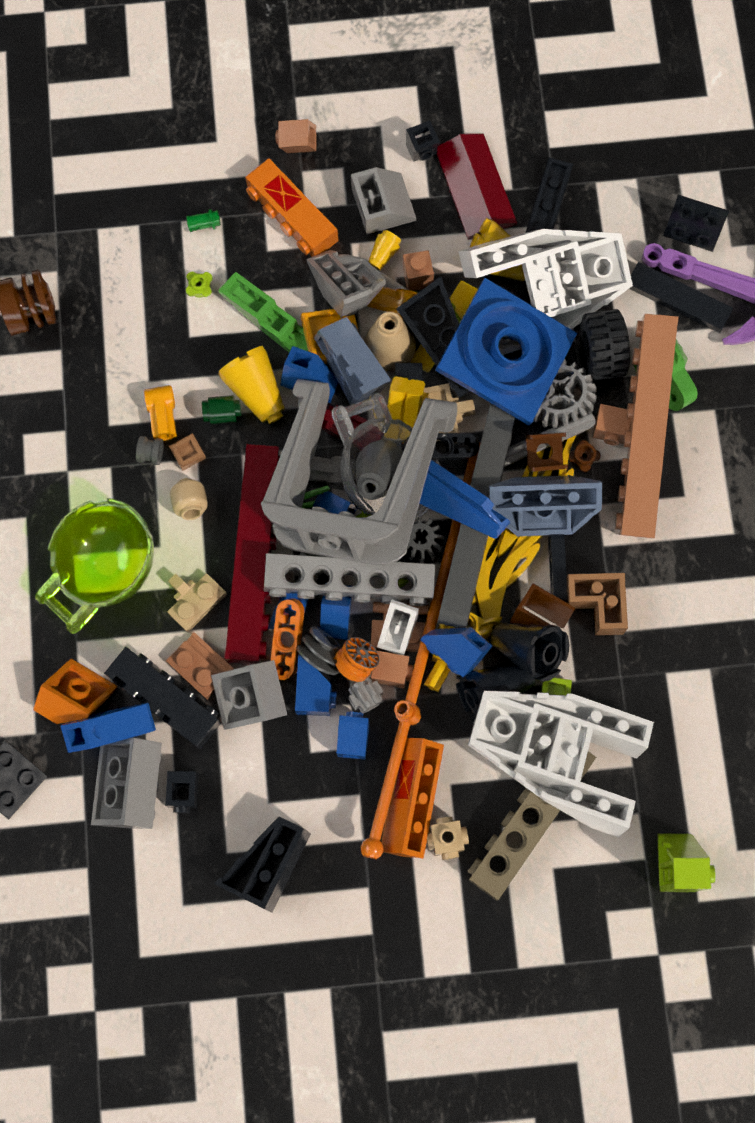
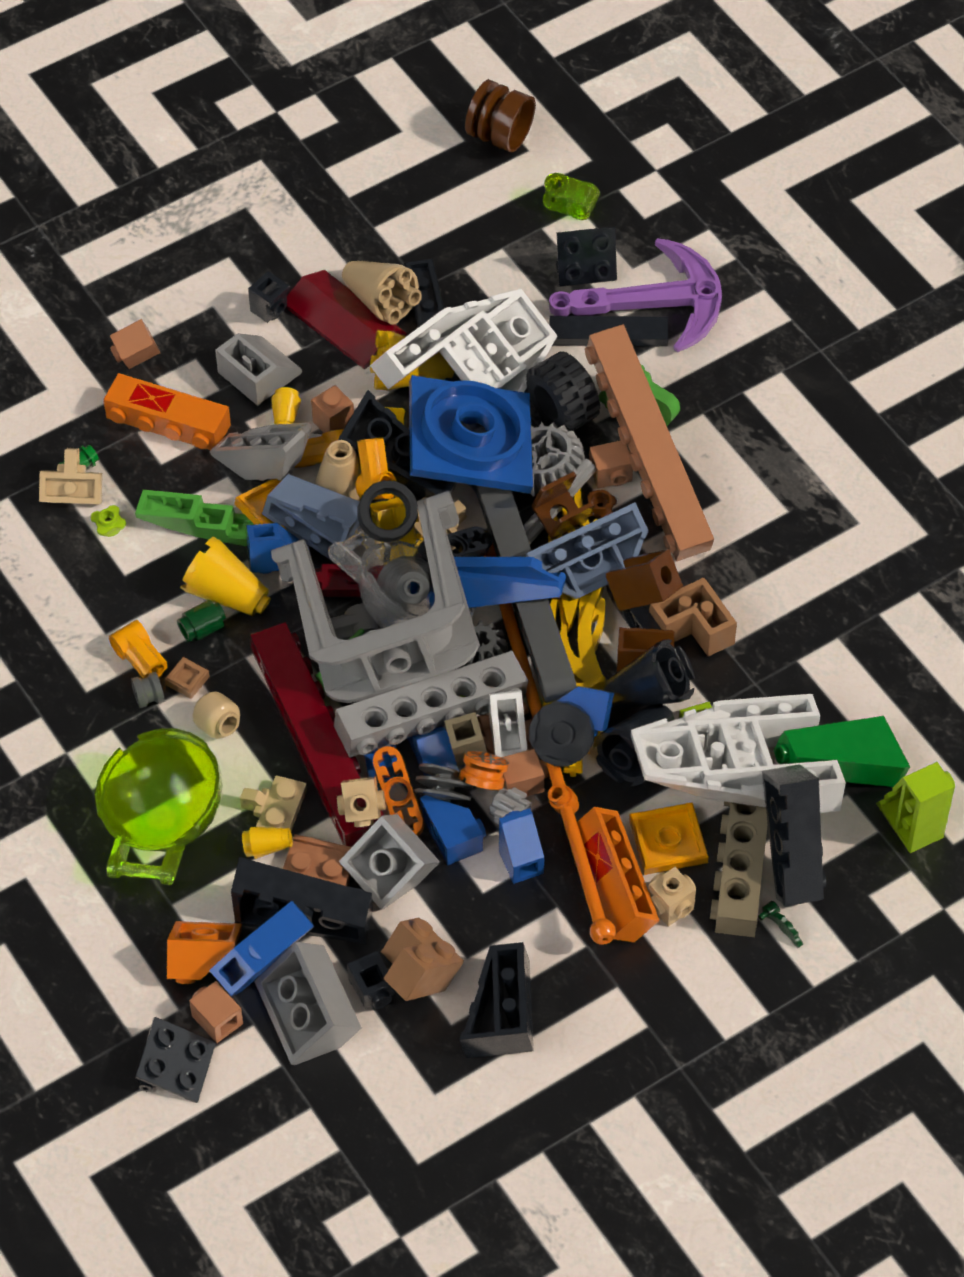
camera: 30 degrees left, 20 degrees down
(54, 755) = (216, 1011): none -> nougat brick
(166, 627) = (265, 840): none -> yellow cone
(186, 237) = (70, 482): none -> tan hinge
(226, 796) = (419, 960): none -> medium nougat brick
(245, 641) = (361, 788): none -> tan brick
(359, 621) = (465, 736): none -> dark tan brick
(381, 411) = (398, 490): none -> black tyre
(409, 354) = (373, 466): none -> light orange piece
(431, 662) = (561, 733): none -> black tile
(474, 782) = (668, 838): none -> light orange tile
(516, 176) = (383, 288): none -> tan cone
(520, 886) = (772, 911): none -> dark green piece
(565, 848) = (794, 834): none -> black wedge
(570, 557) = (644, 580): none -> reddish brown piece
(656, 786) = (861, 746): none -> green slope
(696, 56) = (500, 115): none -> reddish brown wheel
(717, 158) = (572, 197): none -> clear neon green piece

